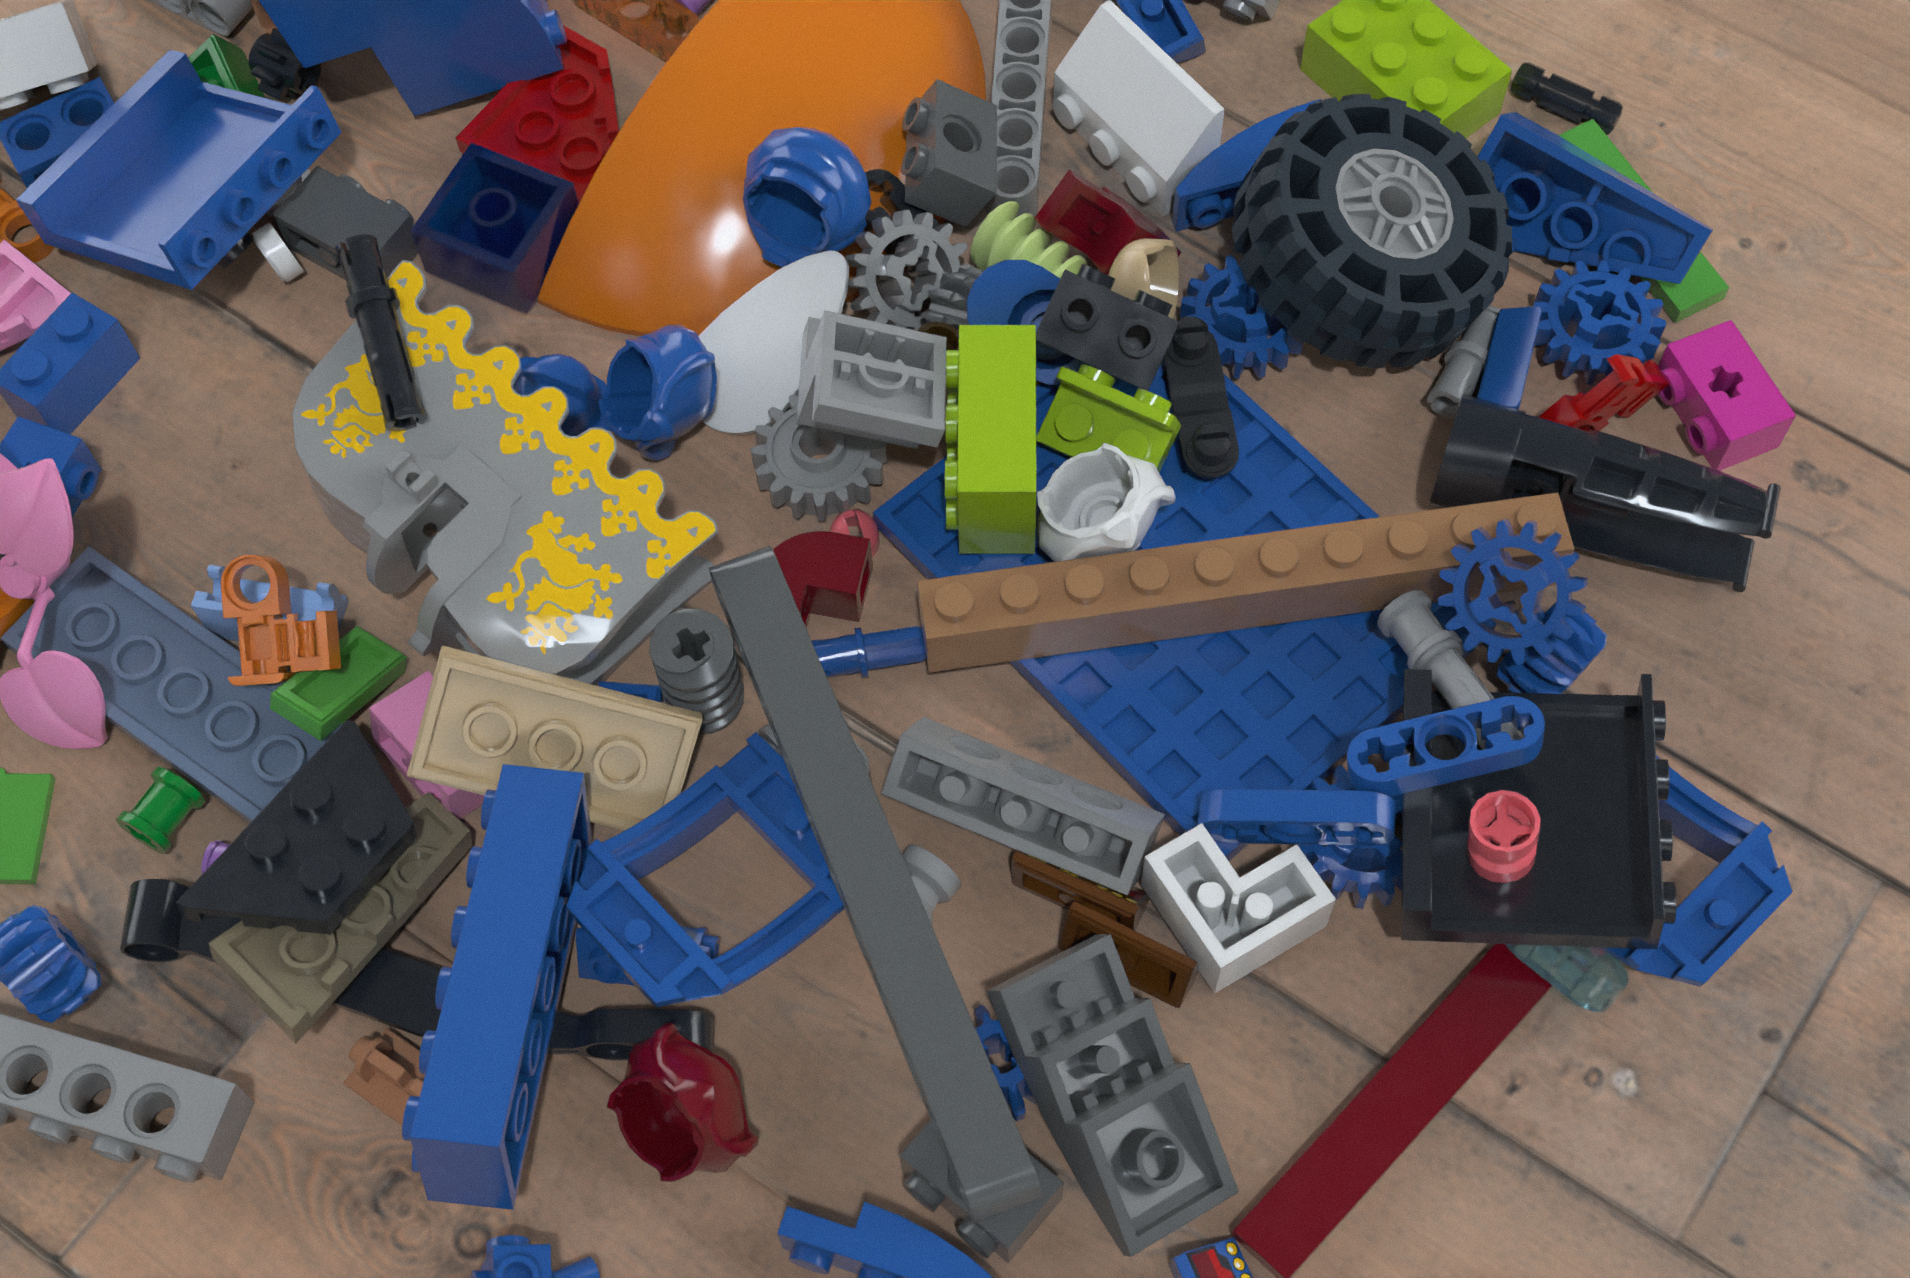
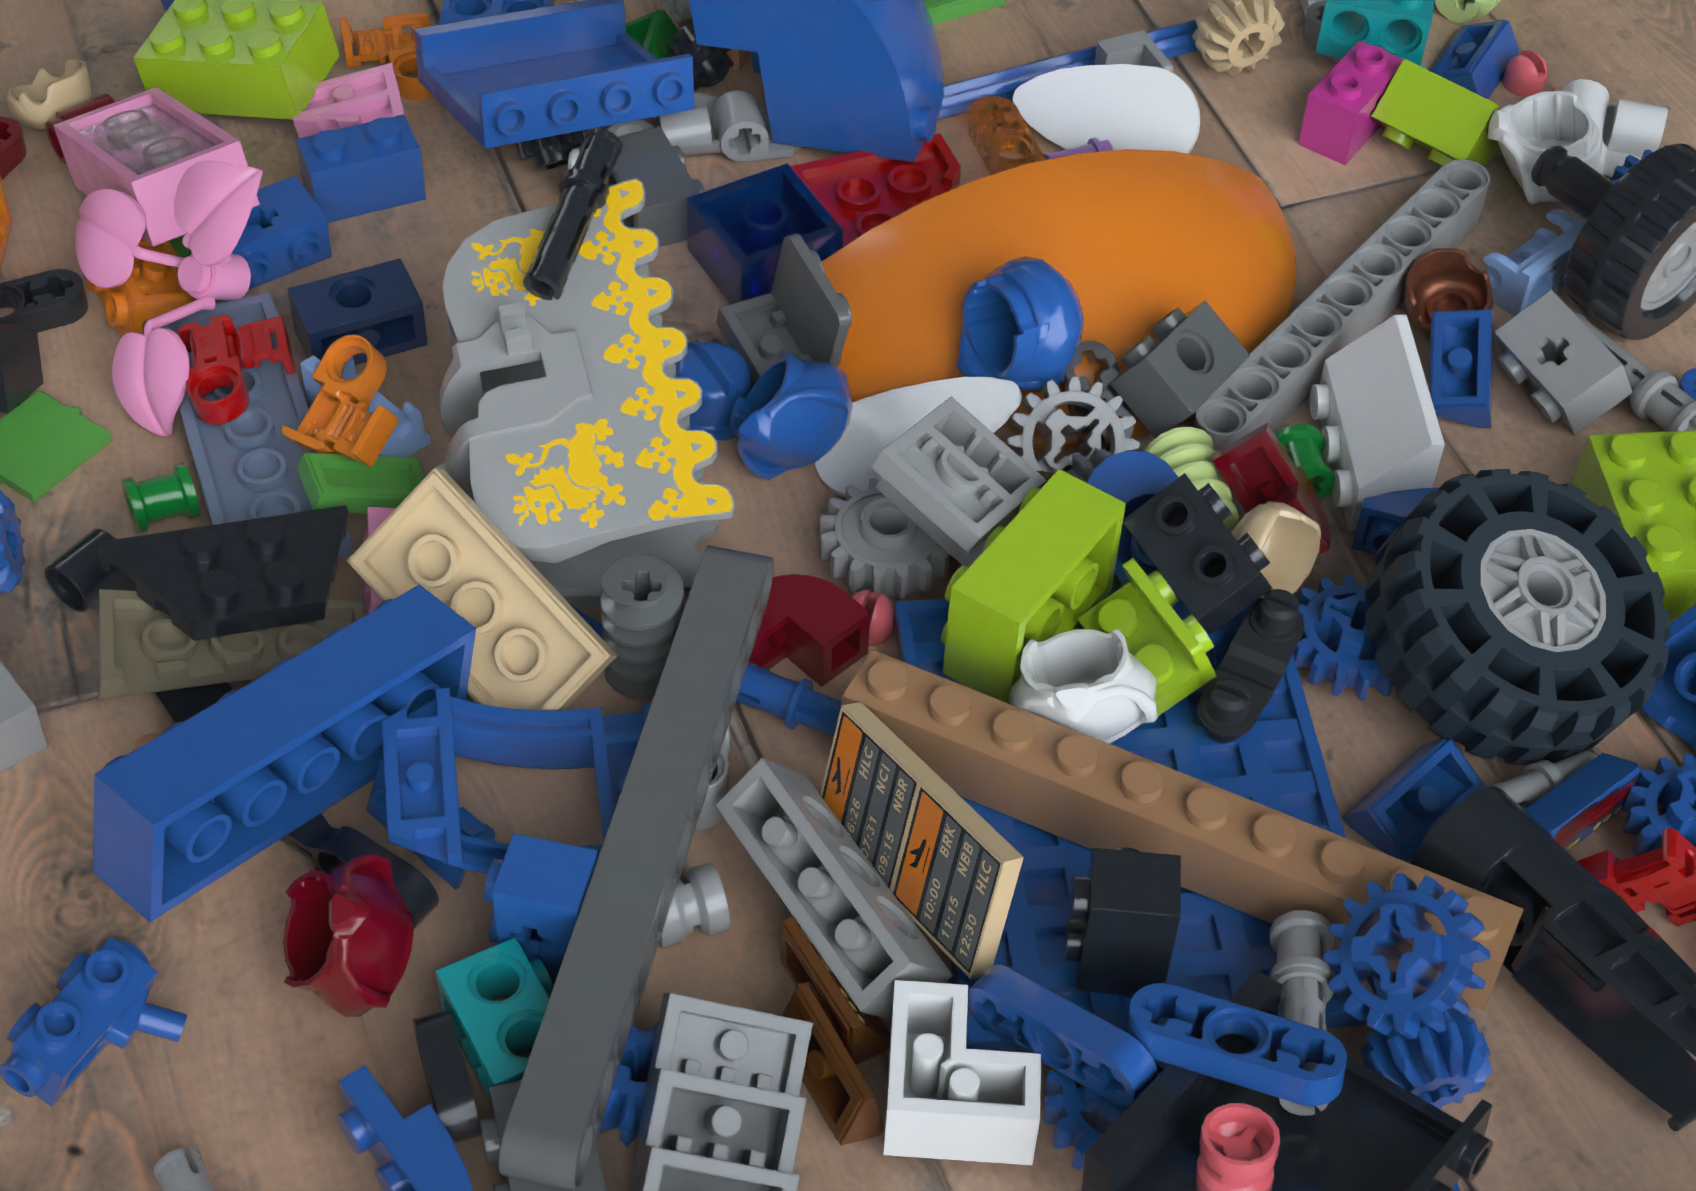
camera: 30 degrees right, 15 degrees down
(114, 630) = (219, 360): none -> red piece
(221, 509) = (365, 302): none -> dark blue brick
(371, 121) = (725, 125): none -> light grey panel
(591, 299) = (797, 316): none -> dark grey bracket
(821, 976) = (538, 896): none -> blue brick
(843, 1162) = (446, 1075): none -> black beam
(849, 1104) = (495, 1030): none -> teal brick
(1073, 721) = (922, 839): none -> tile
(1085, 162) = (1306, 449): none -> green bush
(1283, 691) = (1124, 920): none -> black brick
(1380, 431) = (1413, 798): none -> blue slope

